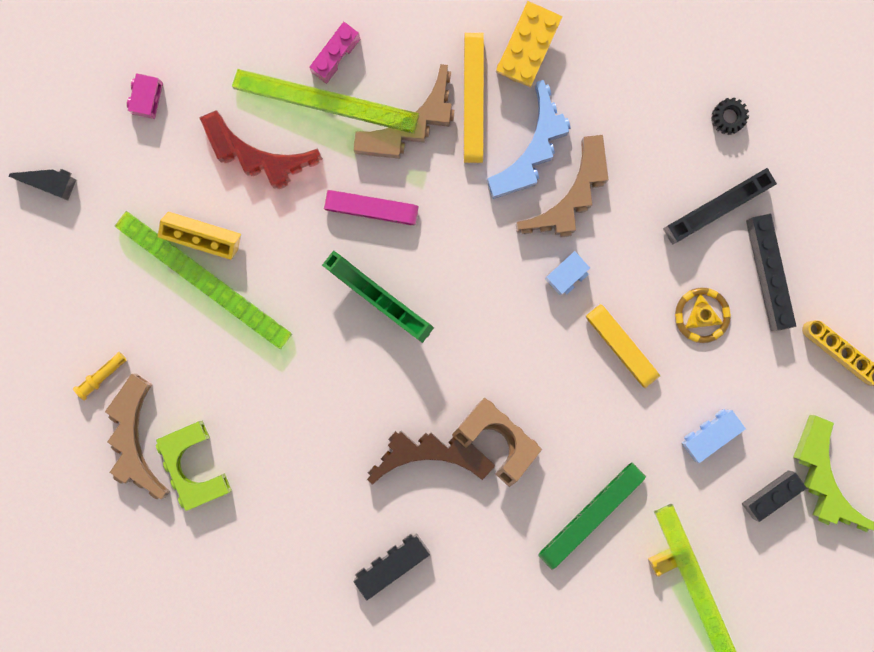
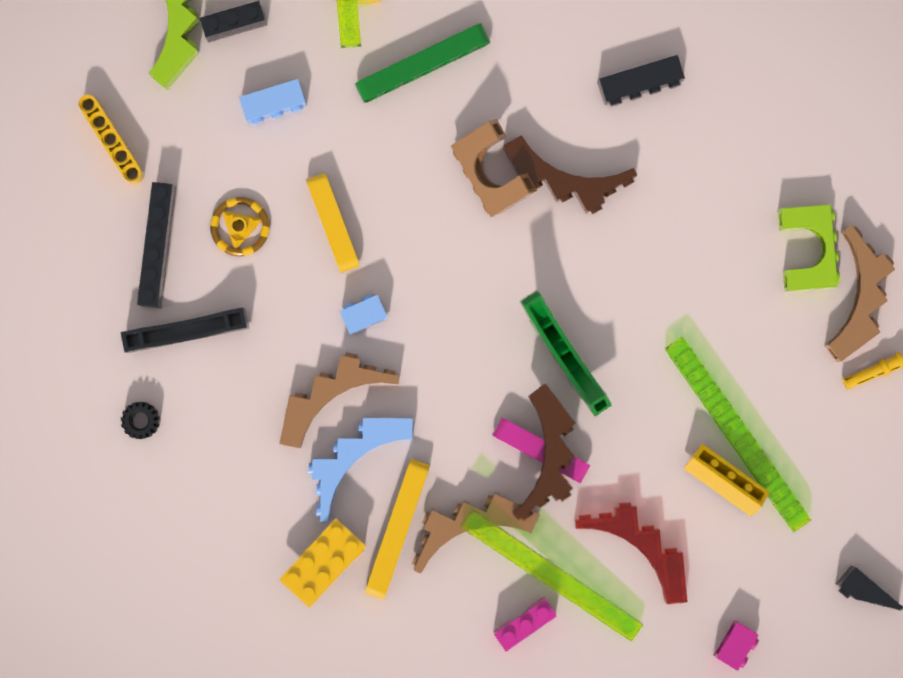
camera: 170 degrees left, 0 degrees up
(355, 205) = (551, 482): none -> reddish brown arch

